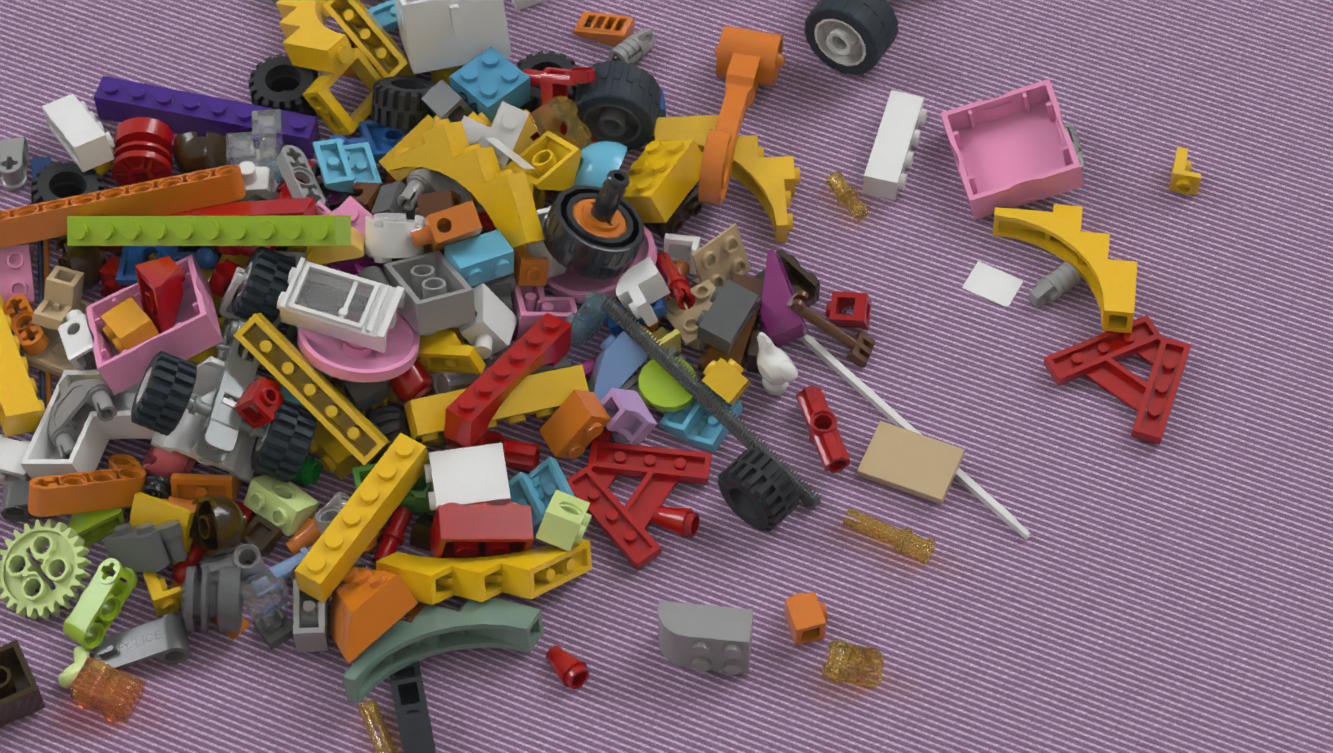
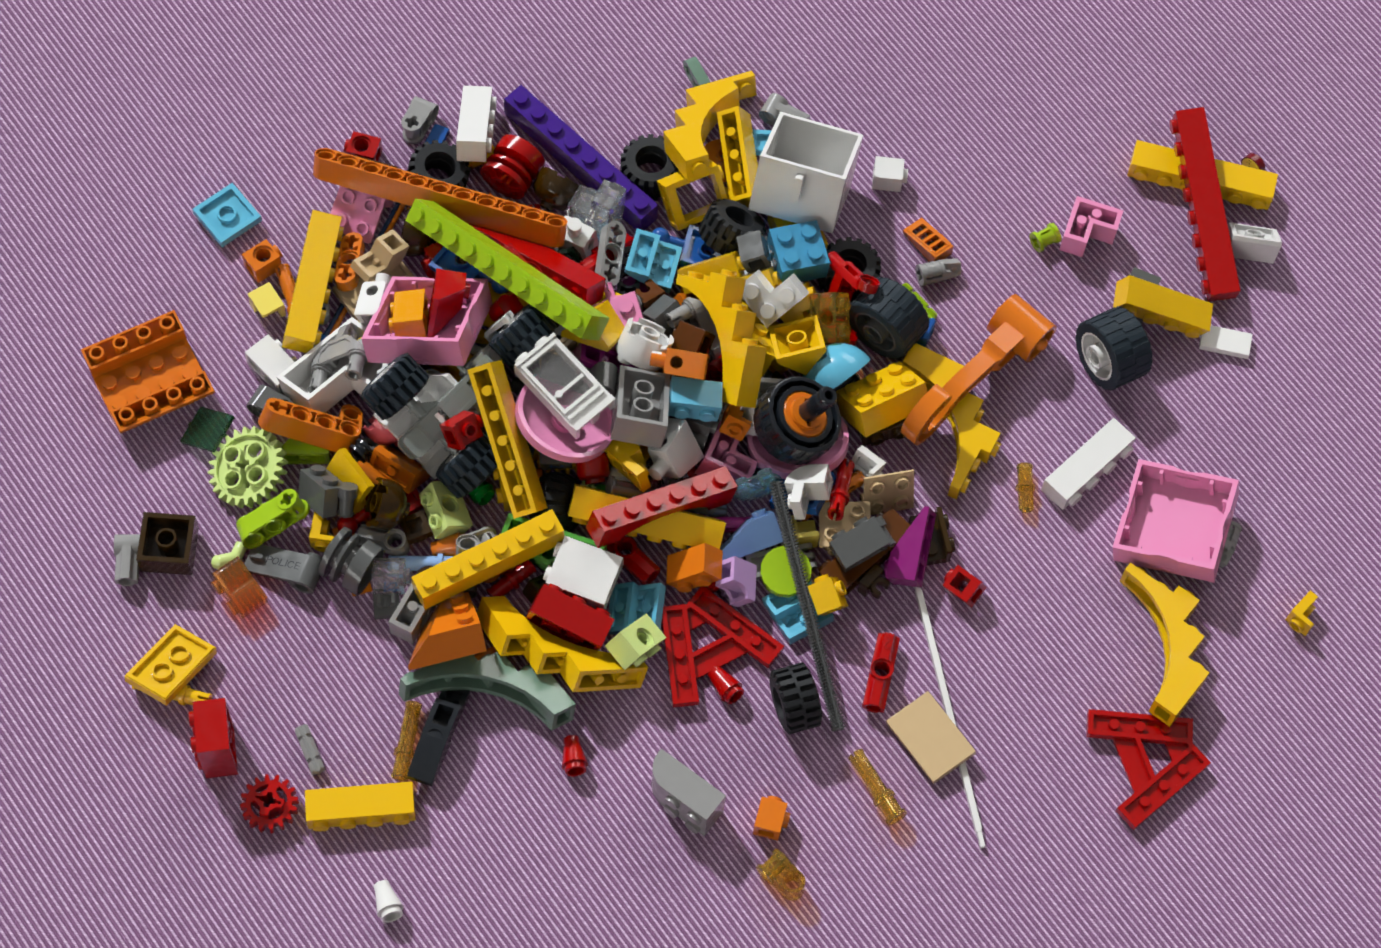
camera: 25 degrees right, 10 degrees up
(512, 155) = (769, 323): white sticker -> none
(774, 366) = (873, 602): white animal -> none
(859, 346) = (950, 617): reddish brown hinge -> none
(992, 284) = (1092, 623): white sticker -> none
(1054, 284) = (1138, 651): light grey hinge -> none

